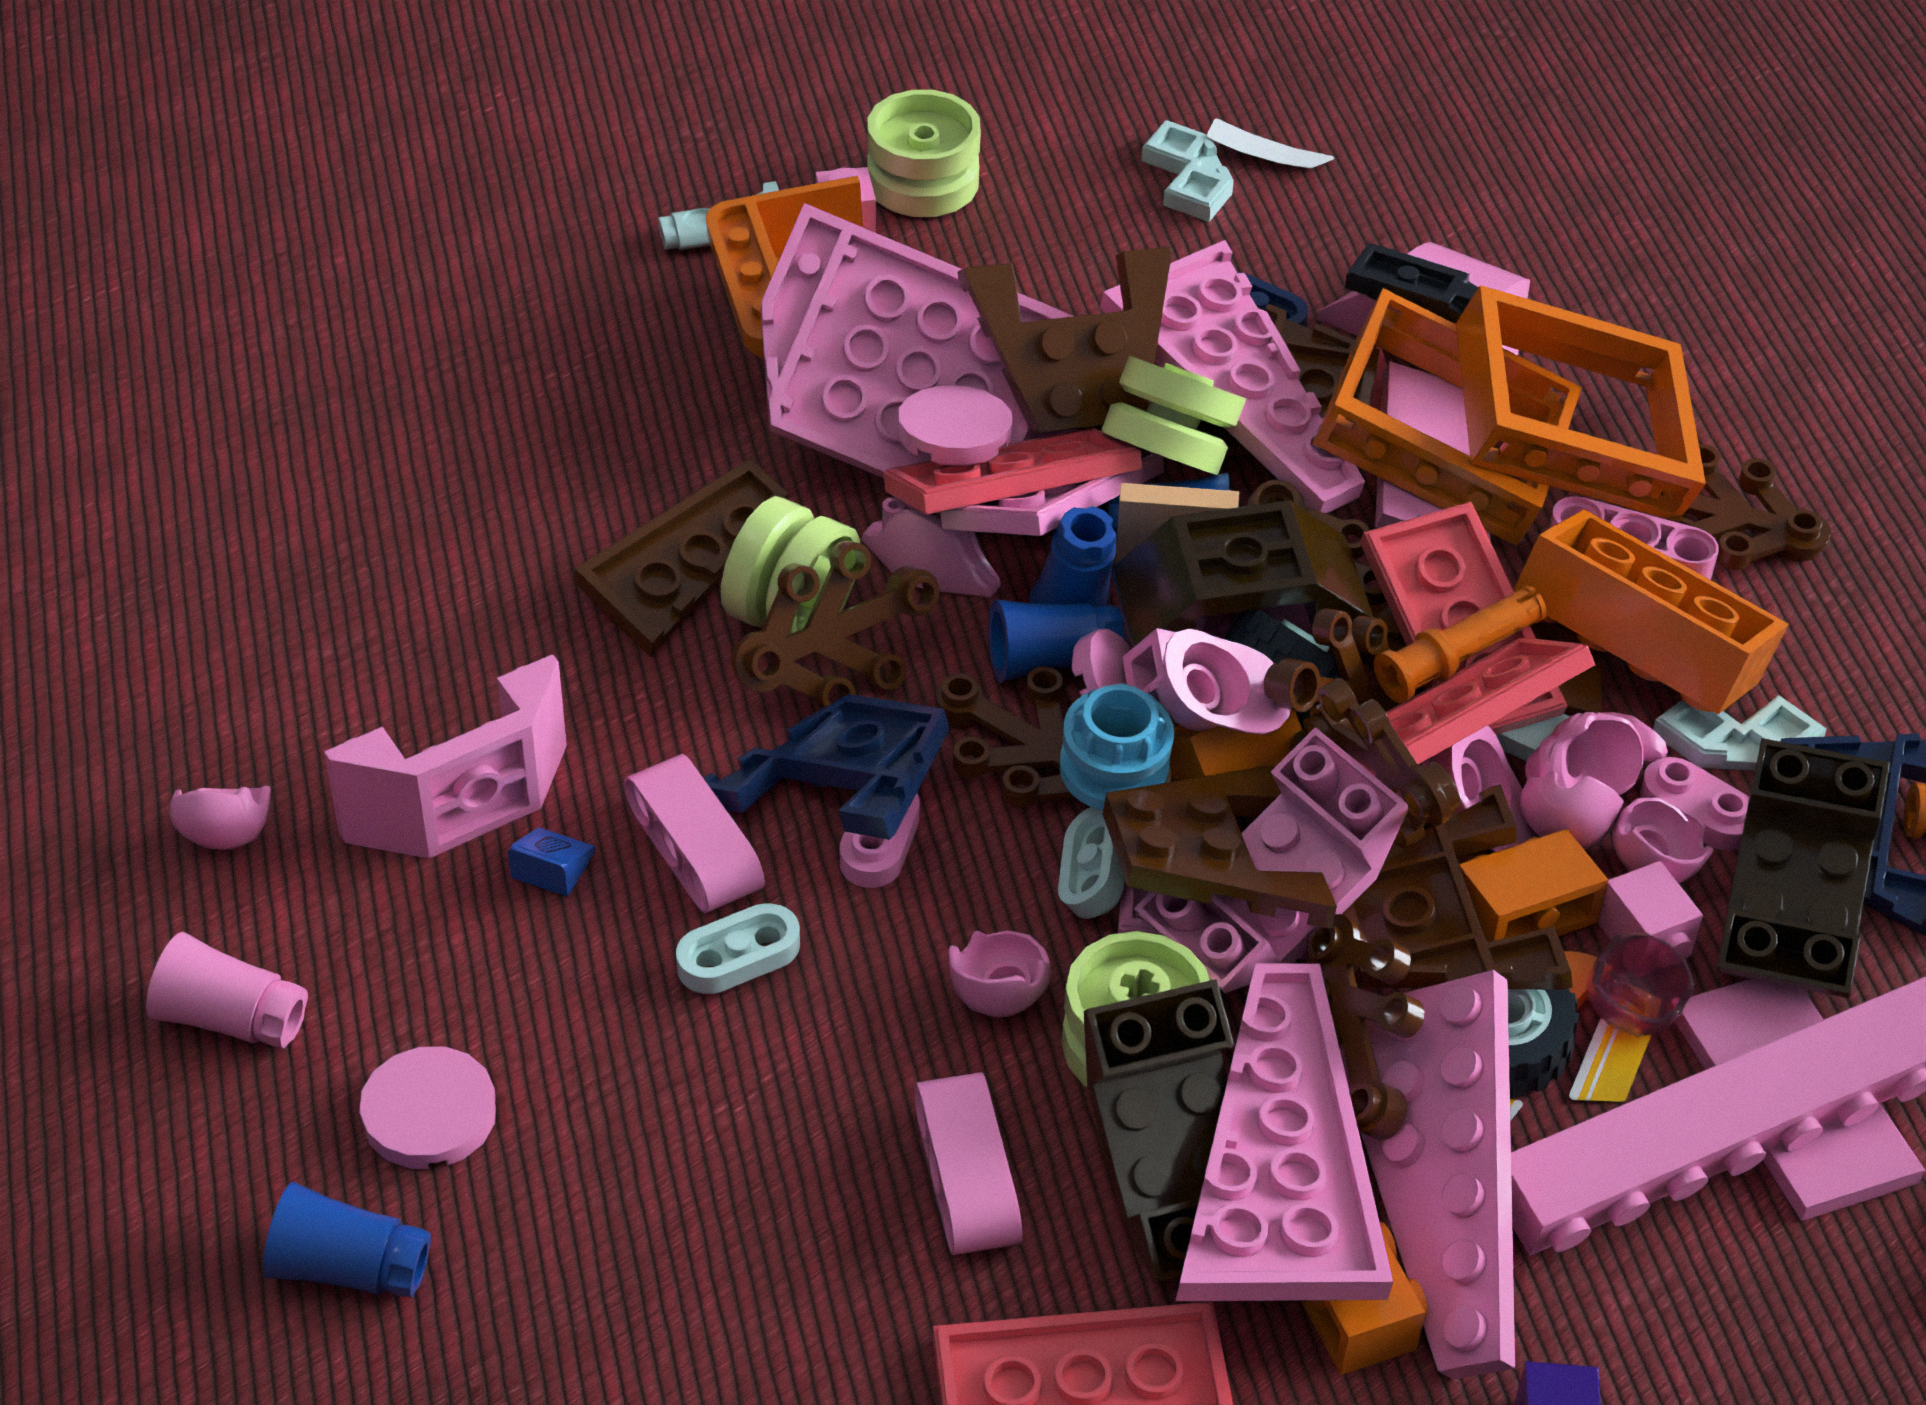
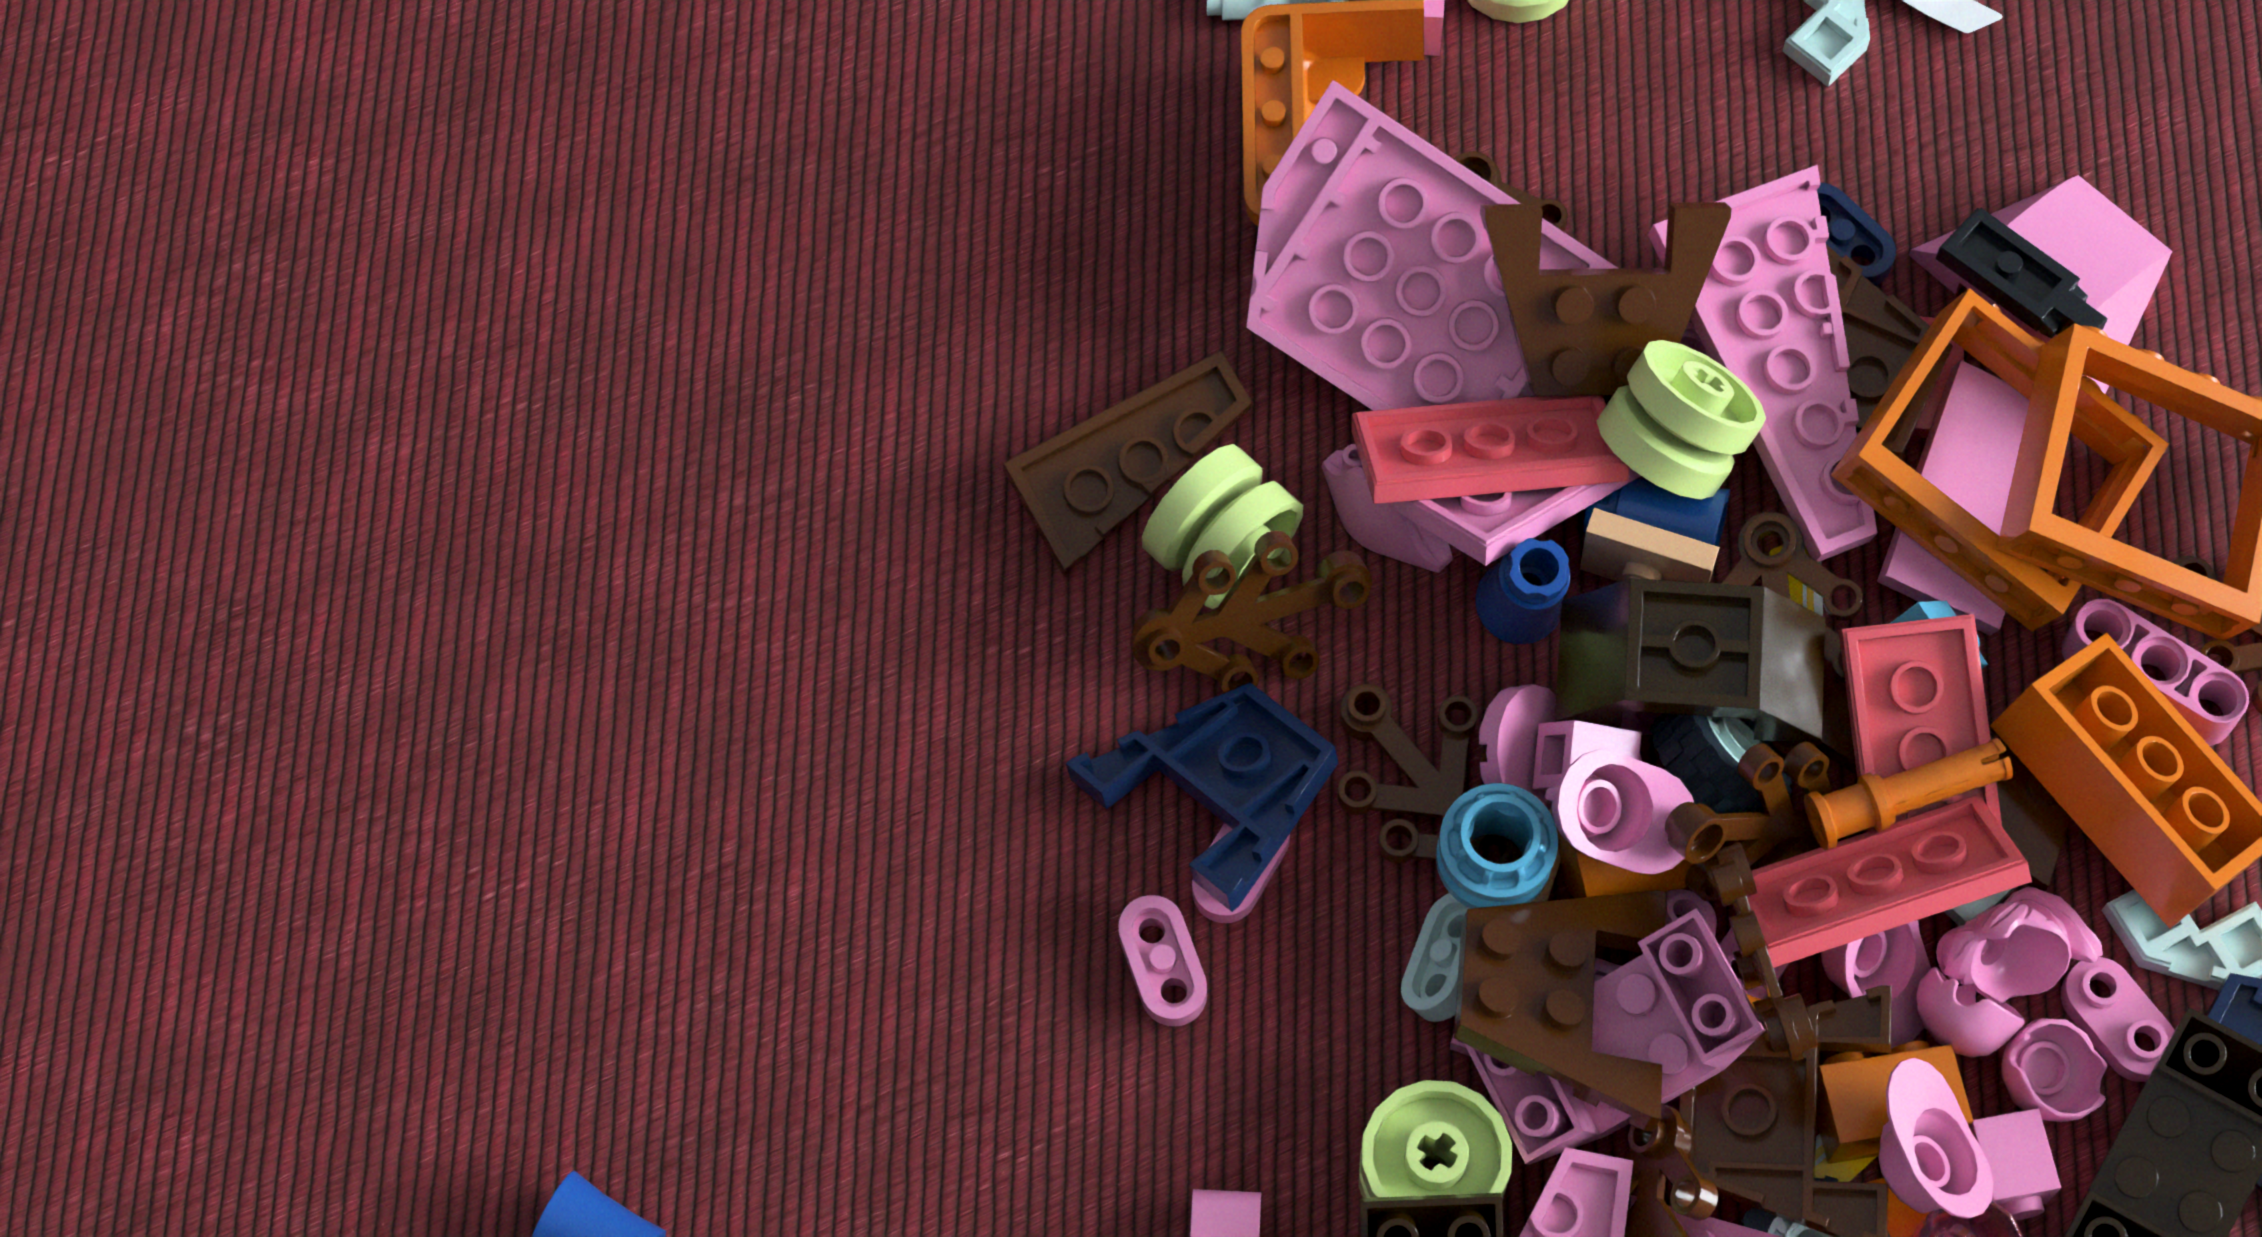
camera: 20 degrees right, 20 degrees up
(220, 816) = (589, 699): bright pink hair -> none
(223, 994) = (551, 924): bright pink plant -> none
(428, 1107) = (722, 1092): bright pink tile -> none
(456, 786) = (837, 731): bright pink slope -> none
(549, 860) = (903, 819): blue slope -> none
(694, 833) = (1050, 826): bright pink beam -> none
(736, 948) = (1060, 973): light aqua plate -> none
(835, 921) = (1162, 963): none -> bright pink plate
(955, 424) = (1439, 379): bright pink tile -> none
(1000, 972) = (1313, 1073): bright pink hair -> none
(1042, 634) = (1480, 657): blue plant -> none
(1578, 896) = (1928, 1146): none -> bright pink piece

